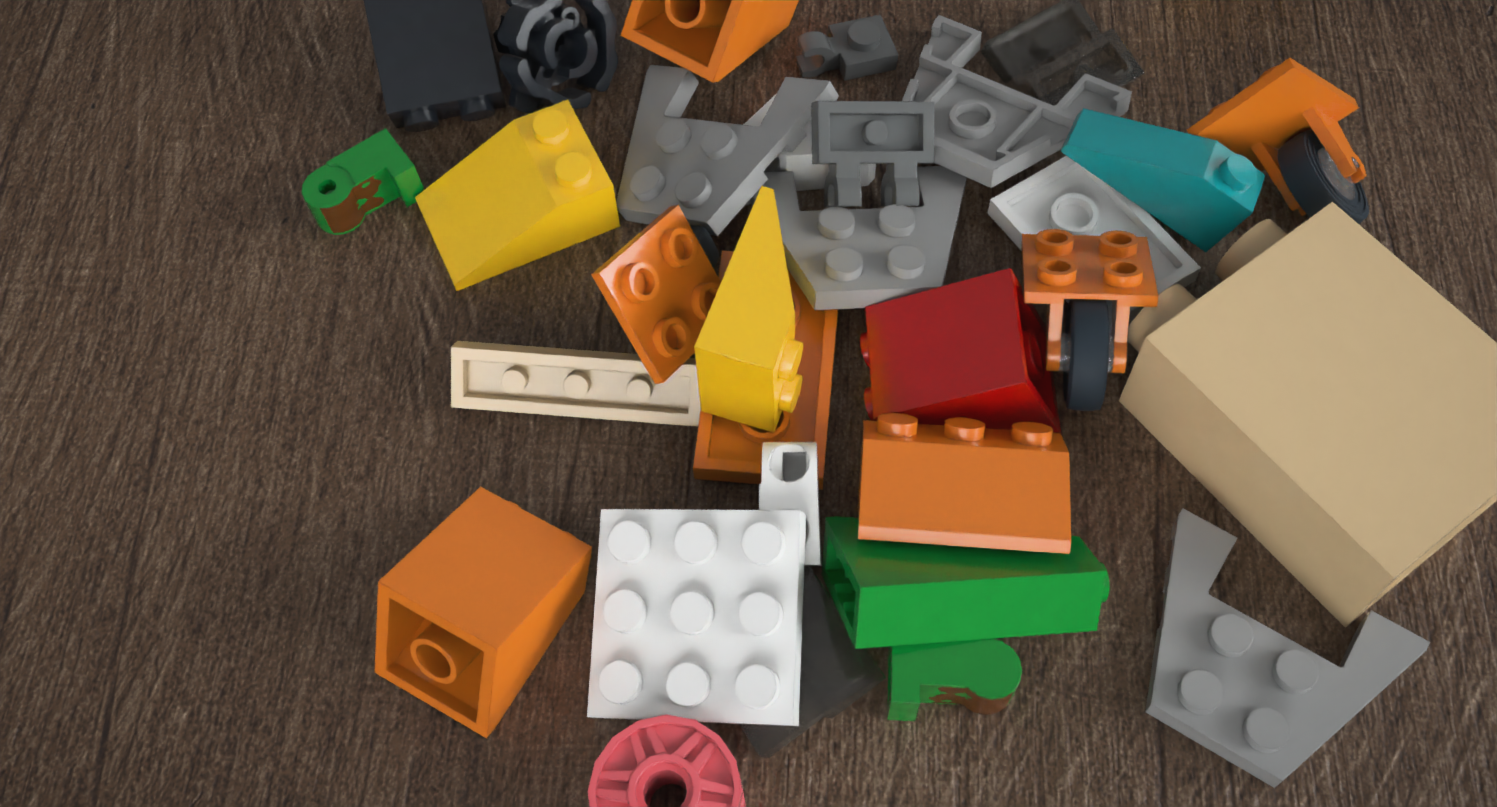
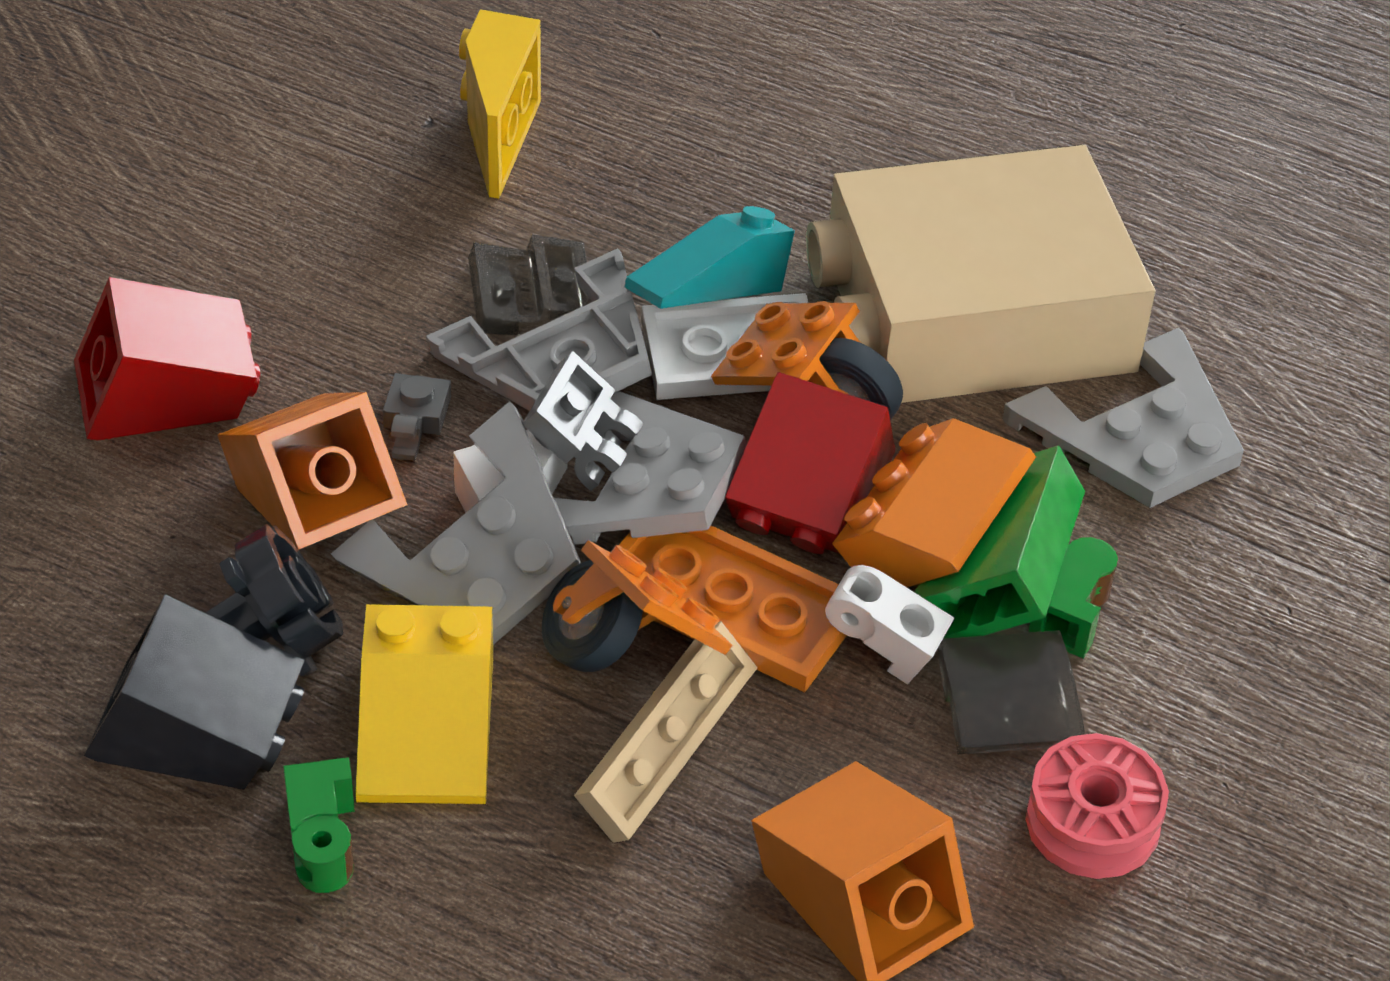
camera: 70 degrees left, 15 degrees down
(698, 615) = (955, 716): white plate -> none
(748, 338) = (723, 544): yellow slope -> none
(1293, 132) = (772, 188): orange plate -> none

